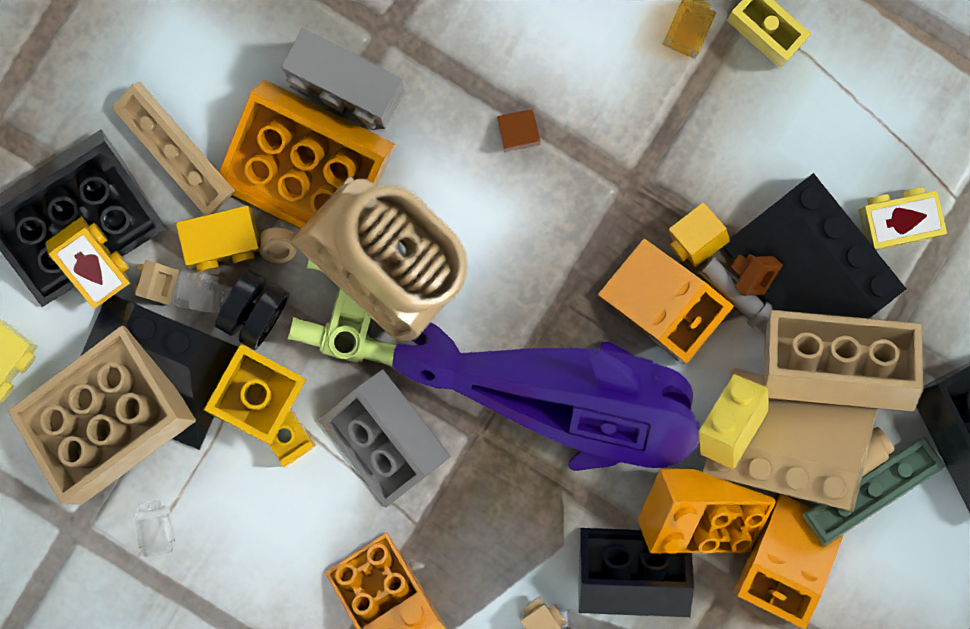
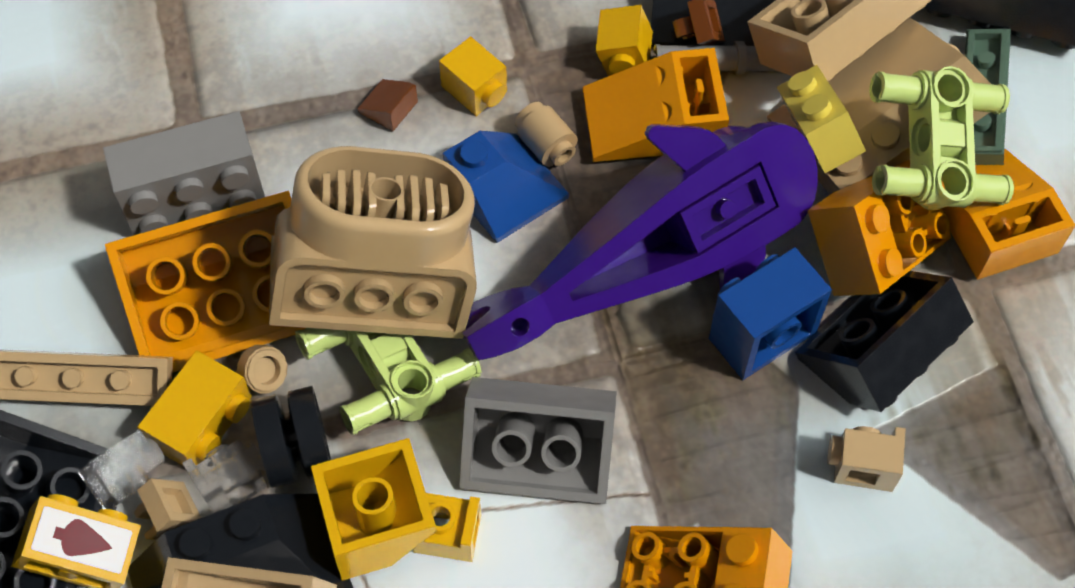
camera: 45 degrees left, 25 degrees down
(149, 237) = (122, 469): none -> clear brick
(531, 258) = (506, 181): none -> blue slope
(578, 499) = (768, 312): none -> blue brick
(584, 168) = (473, 76): none -> yellow brick
(585, 252) = (546, 134): none -> tan brick
(775, 511) = (941, 138): none -> yellowish green piece

